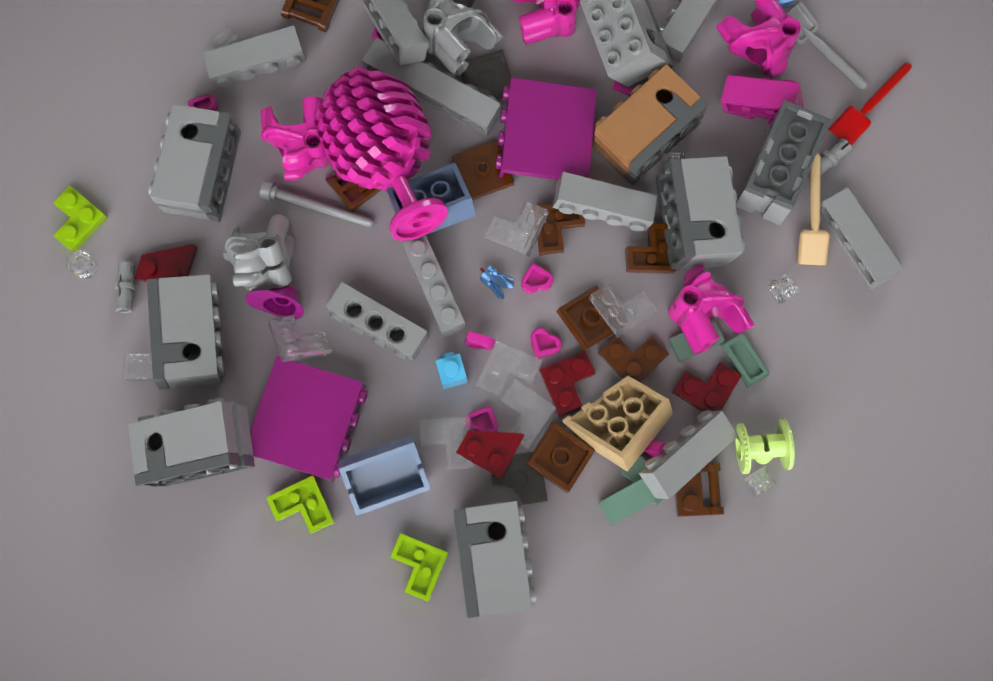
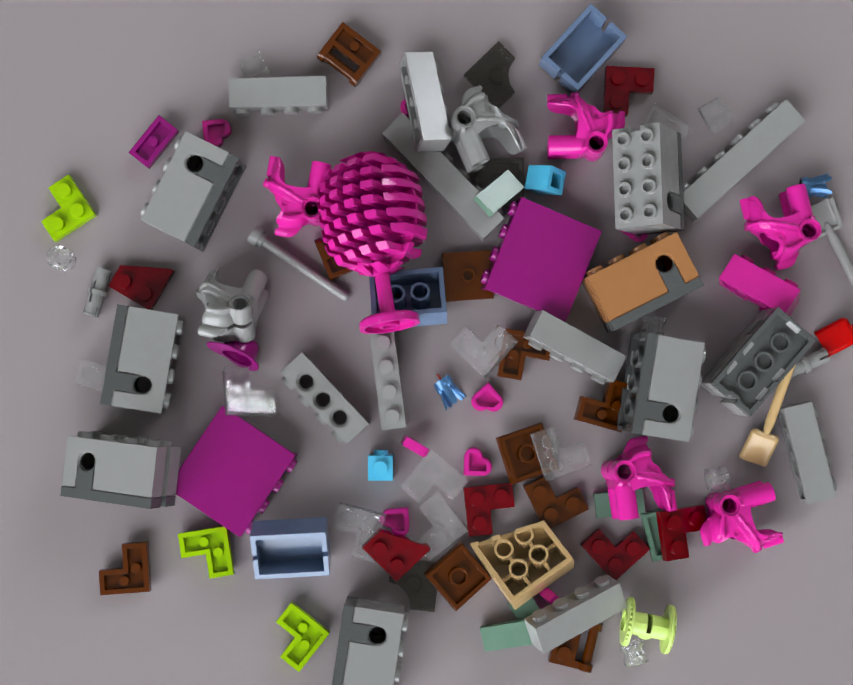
camera: 15 degrees right, 10 degrees up
(145, 132) = (154, 142): none -> magenta plate
(232, 552) = (134, 575): none -> reddish brown plate
(488, 83) = (498, 193): none -> tile
(528, 60) = (540, 178): none -> medium azure brick
(758, 345) = (673, 530): none -> dark red plate
(812, 319) = (735, 517): none -> dark pink helmet

